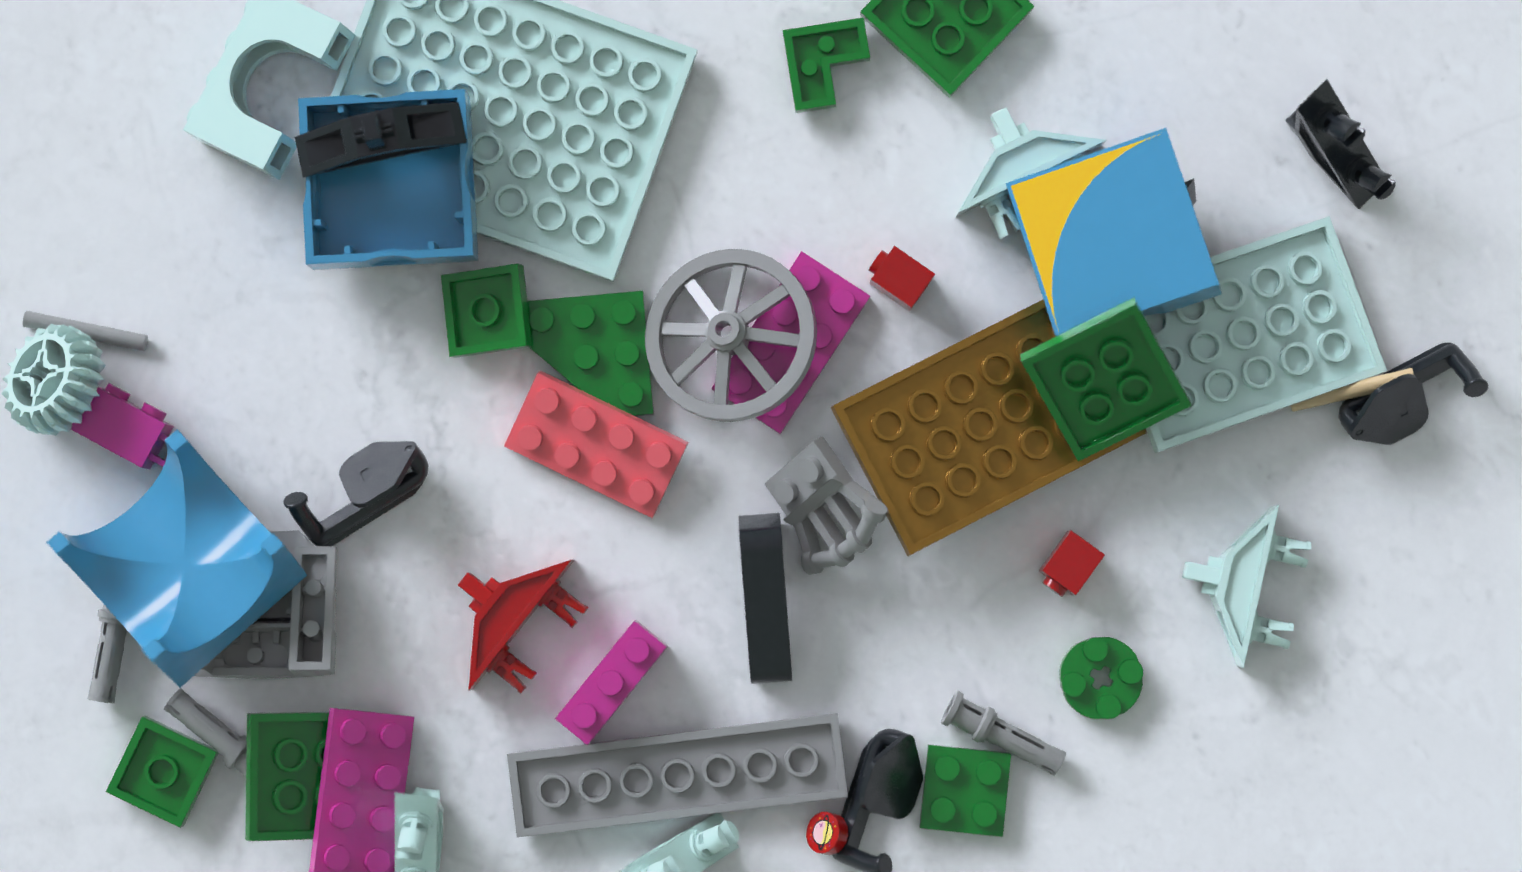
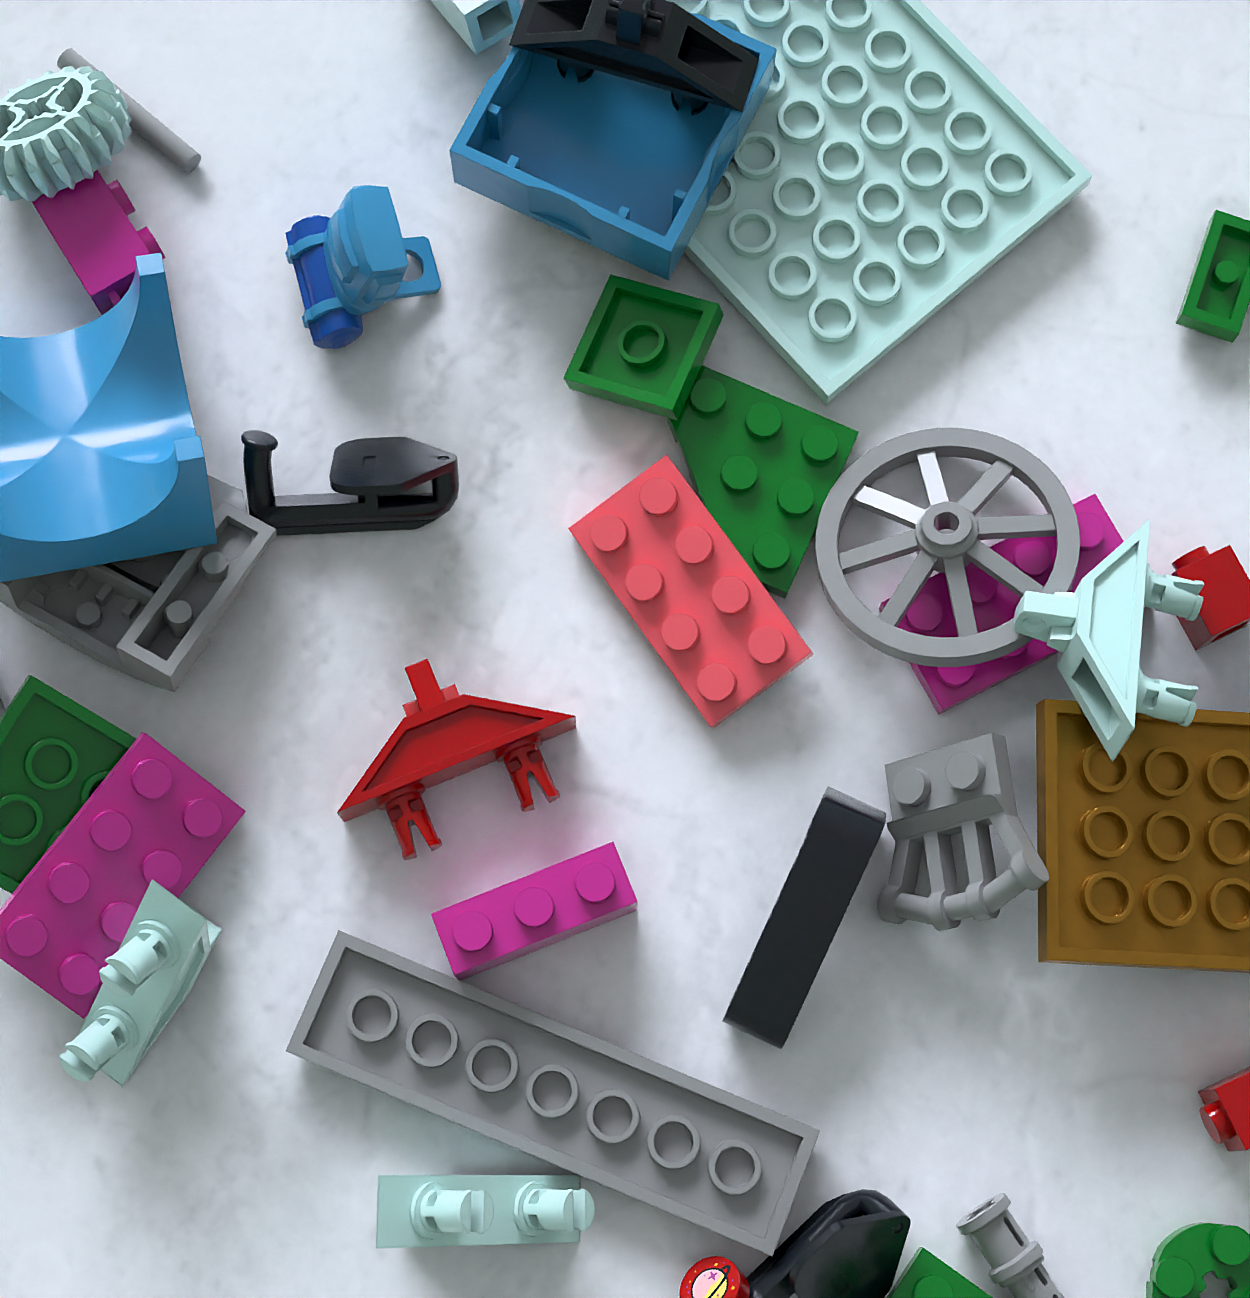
camera: 20 degrees right, 10 degrees down
(285, 358) = (355, 264): none -> dark azure piece
(843, 349) = (1101, 640): none -> light aqua connector

